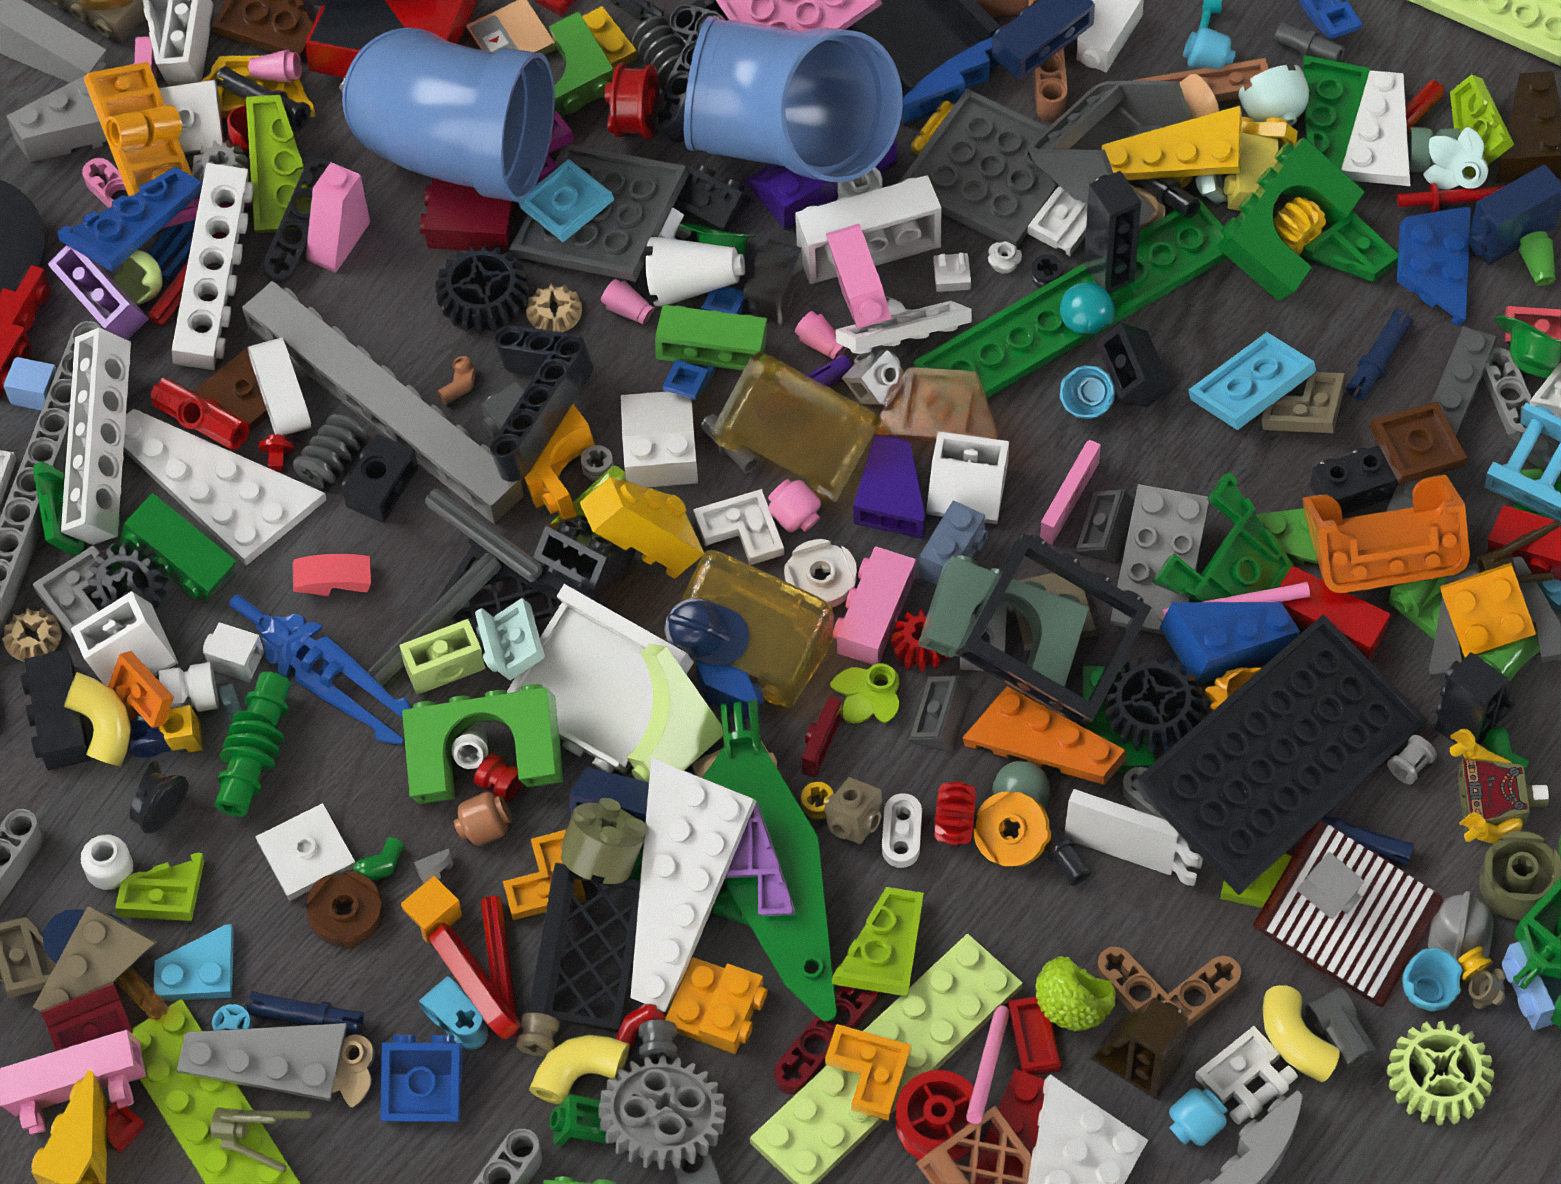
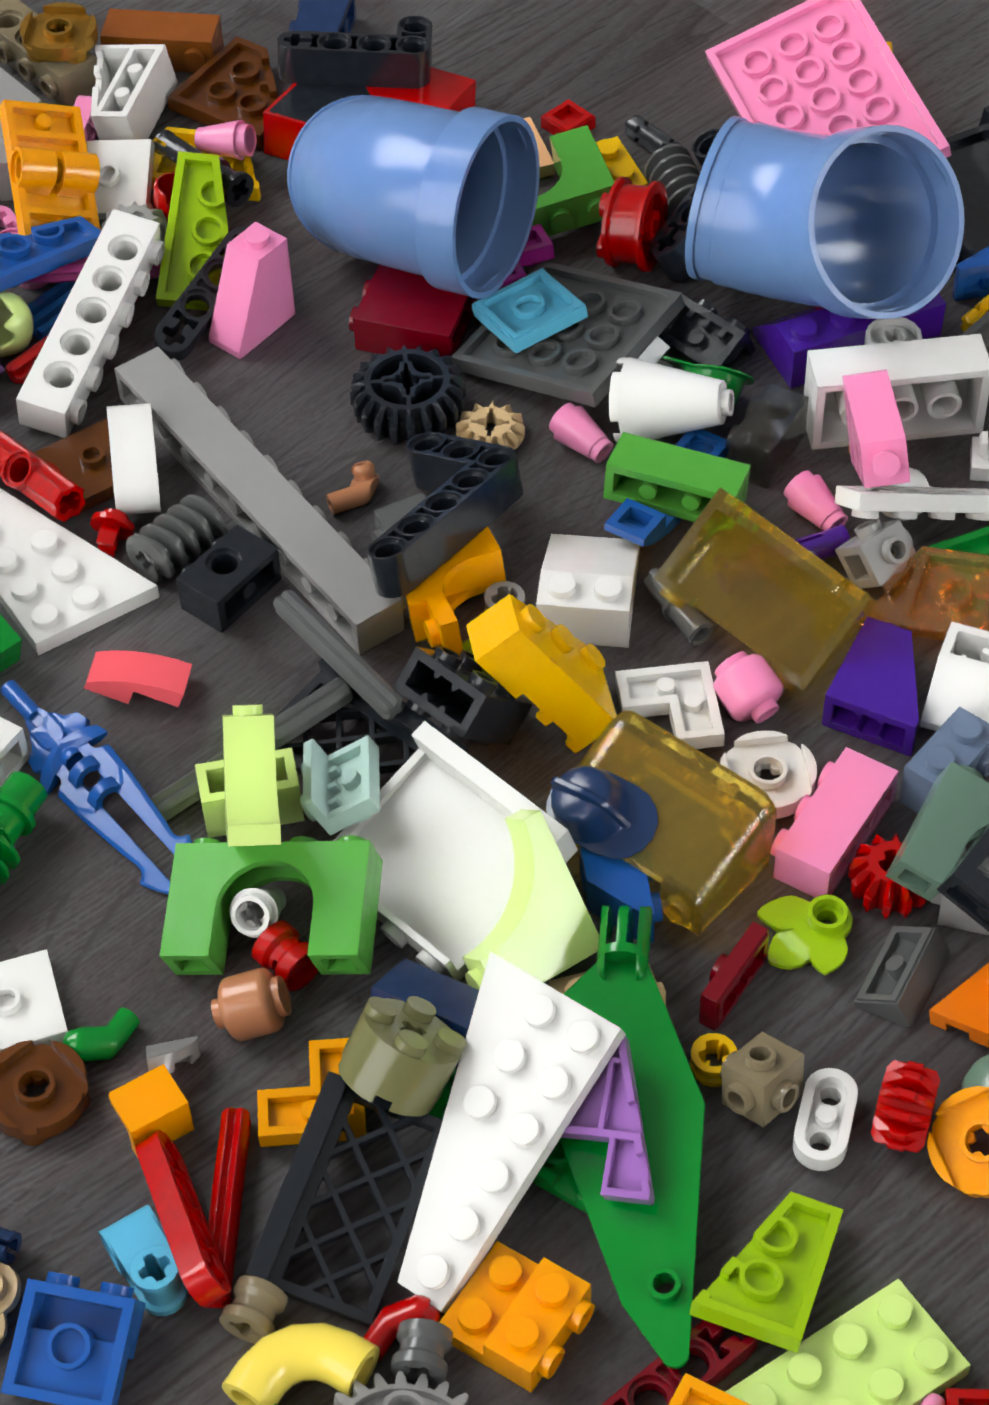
camera: 10 degrees right, 10 degrees down
(449, 658) = (250, 777): none -> yellowish green arch

